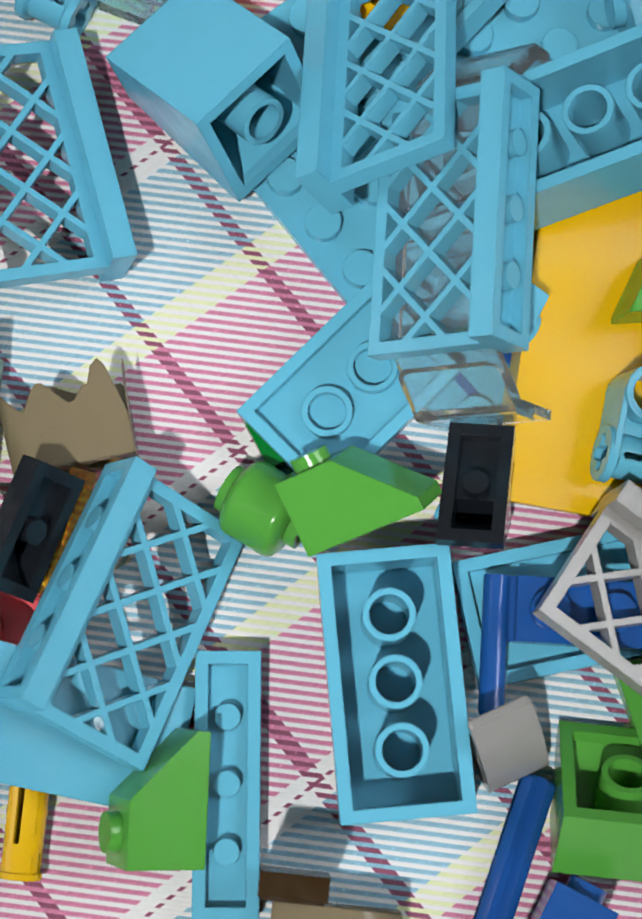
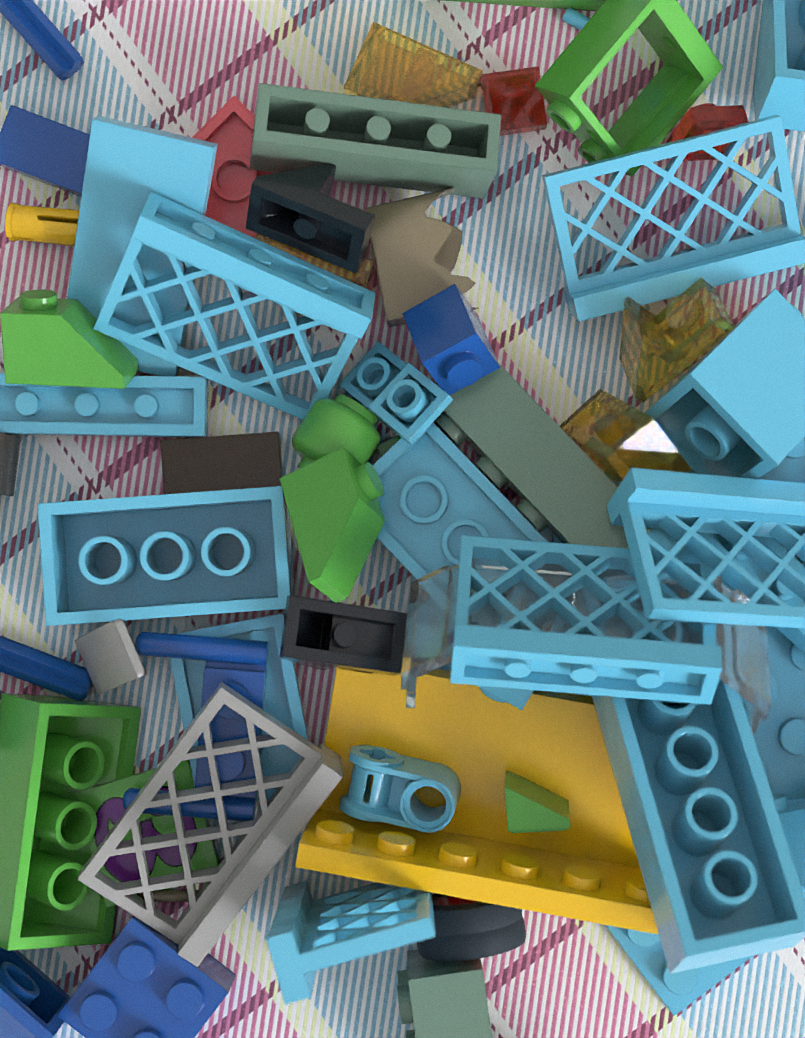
camera: 95 degrees right, 10 degrees up
(157, 379) = (450, 340): none -> blue brick
(162, 170) = (665, 344): none -> clear yellow slope
(214, 441) = (395, 392): none -> medium azure slope
(262, 213) = (621, 438): none -> clear yellow slope
(280, 300) = (535, 459): none -> sand green brick
(291, 635) = (221, 462): none -> dark brown tile

